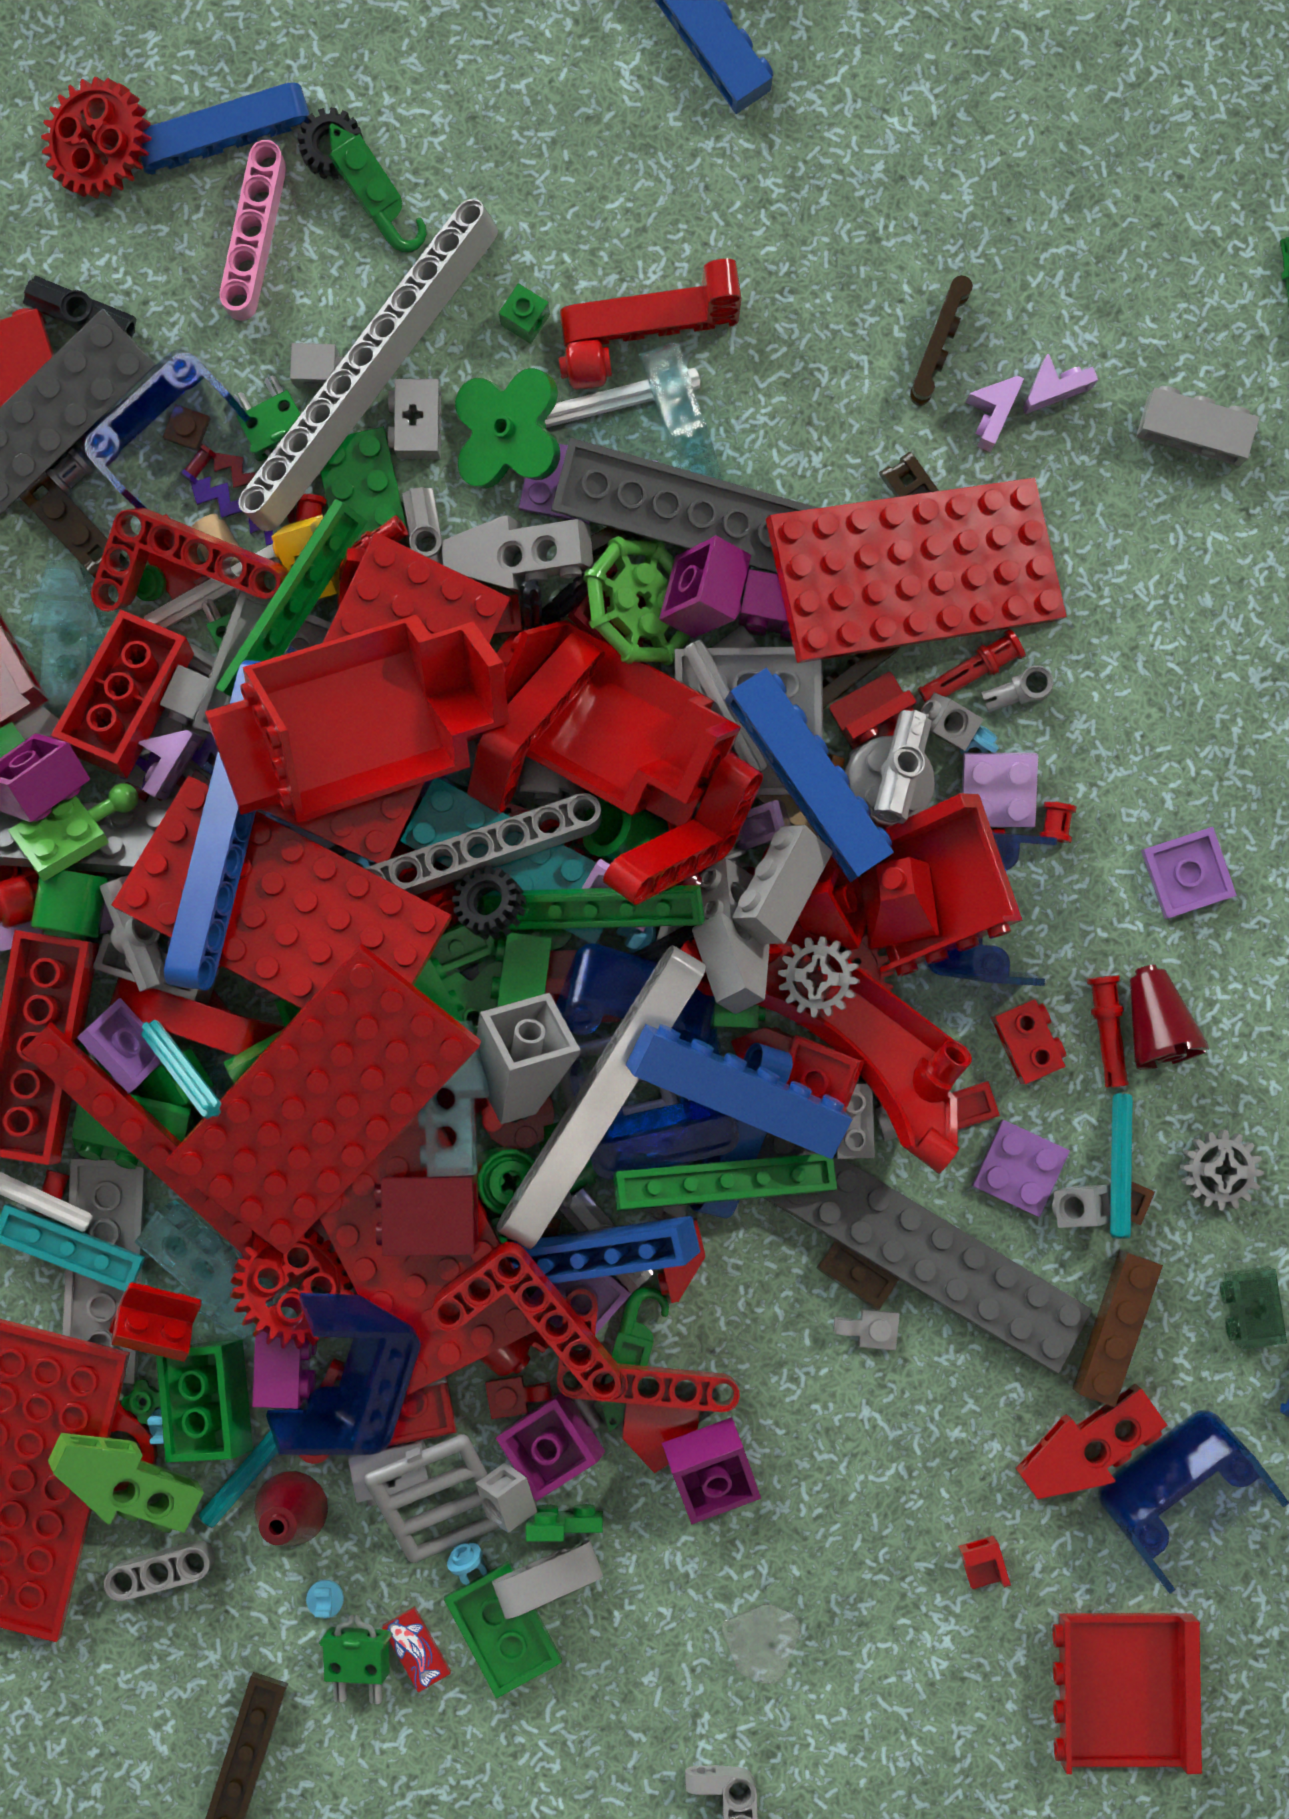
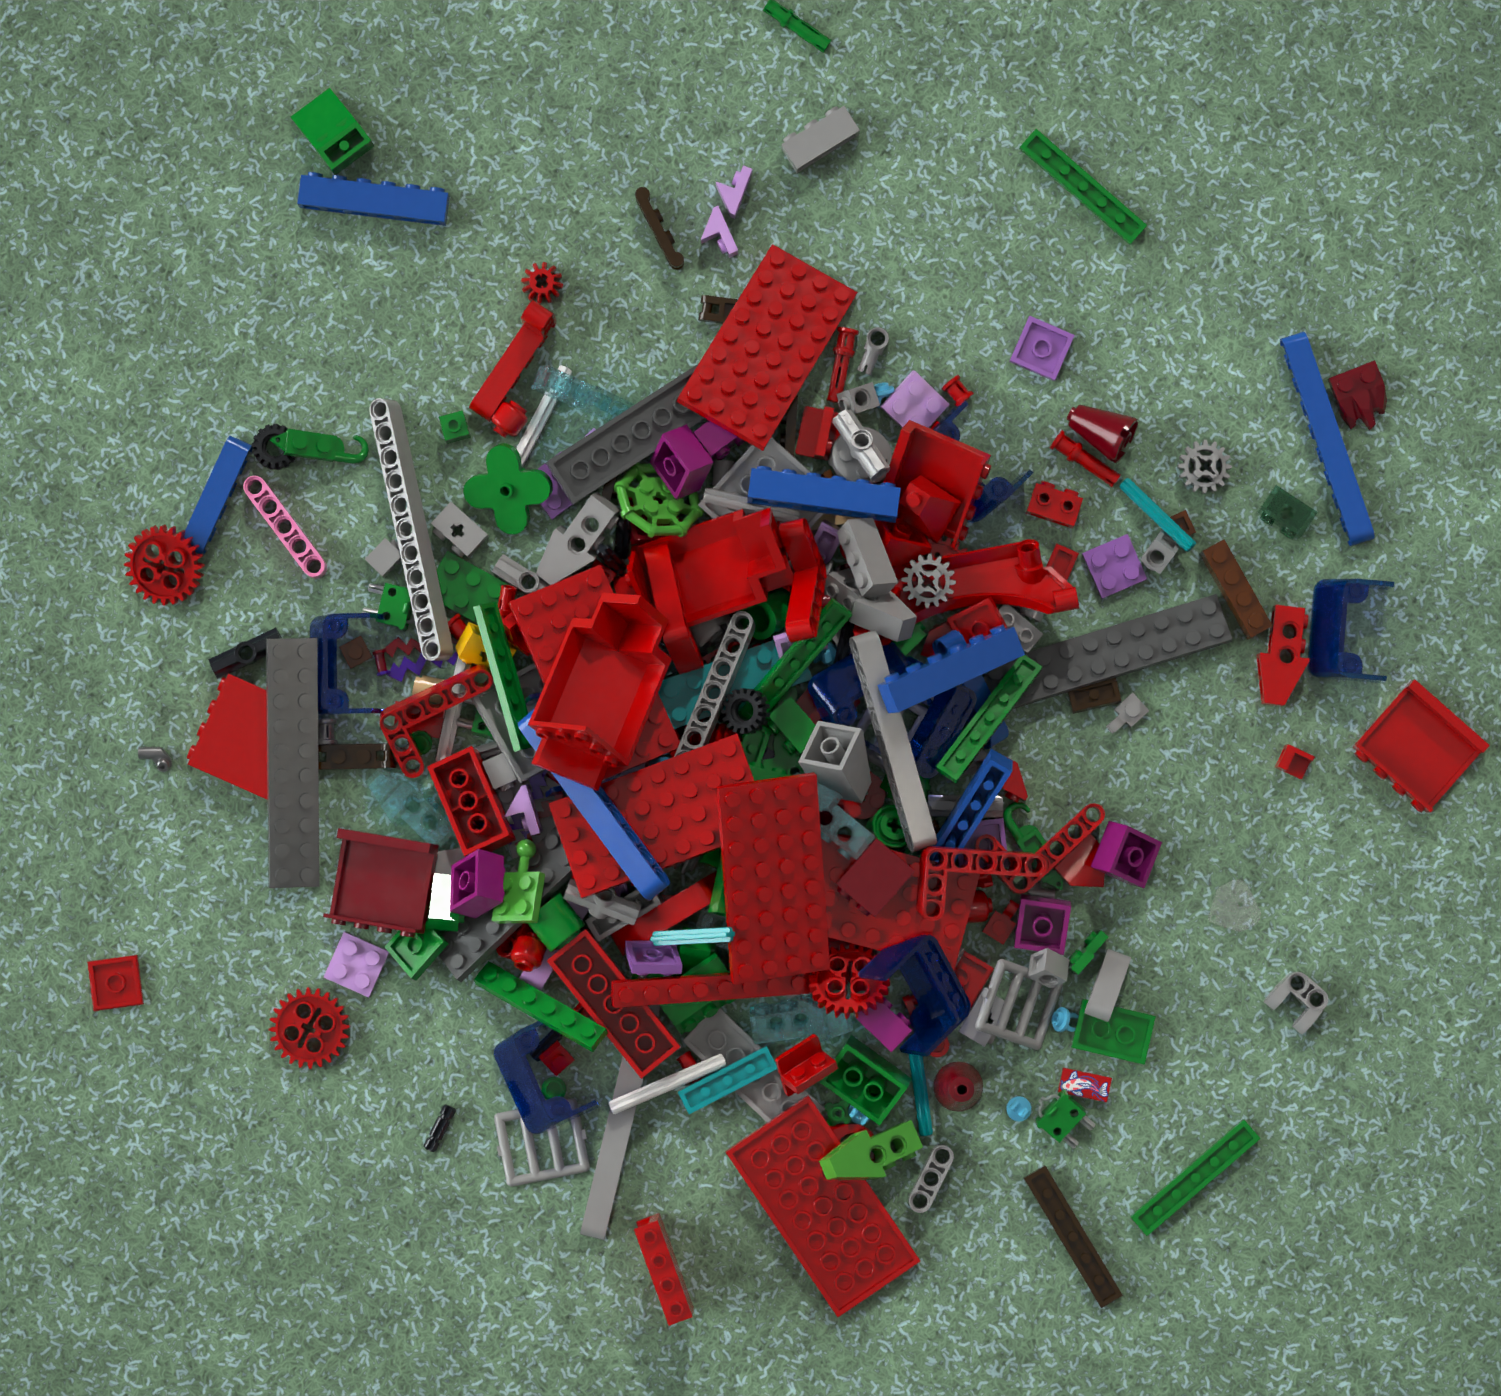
camera: 55 degrees left, 0 degrees up
(752, 269) = (532, 285): none -> red gear

